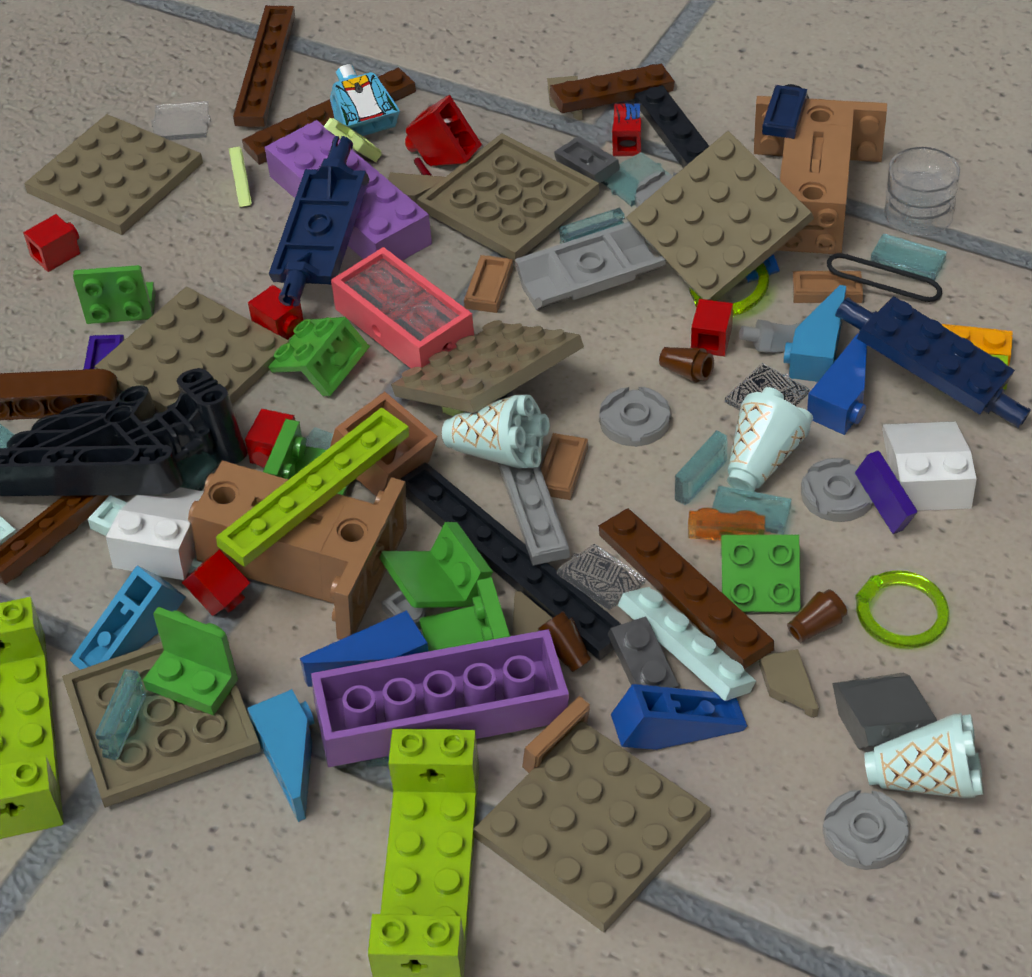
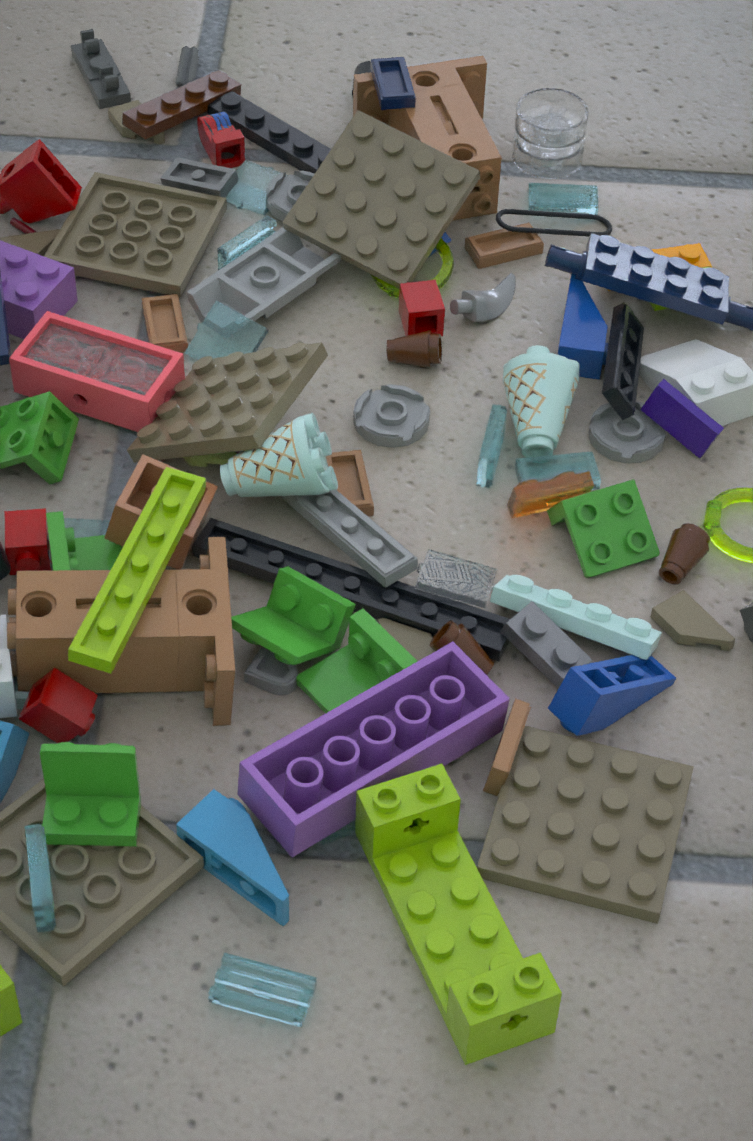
camera: 30 degrees left, 0 degrees up
(227, 846) = (265, 982): none -> clear light blue tile
(382, 641) = (278, 712): blue slope -> none
(527, 305) = (225, 333): none -> clear light blue piece
(561, 42) = (100, 71): none -> dark grey plate
(638, 53) = (187, 66): none -> dark grey axle
(686, 588) = (542, 563): reddish brown plate -> none
(764, 377) = (494, 354): clear piece -> none
(816, 340) = (533, 302): dark azure slope -> none
(863, 423) = (623, 361): none -> black tile

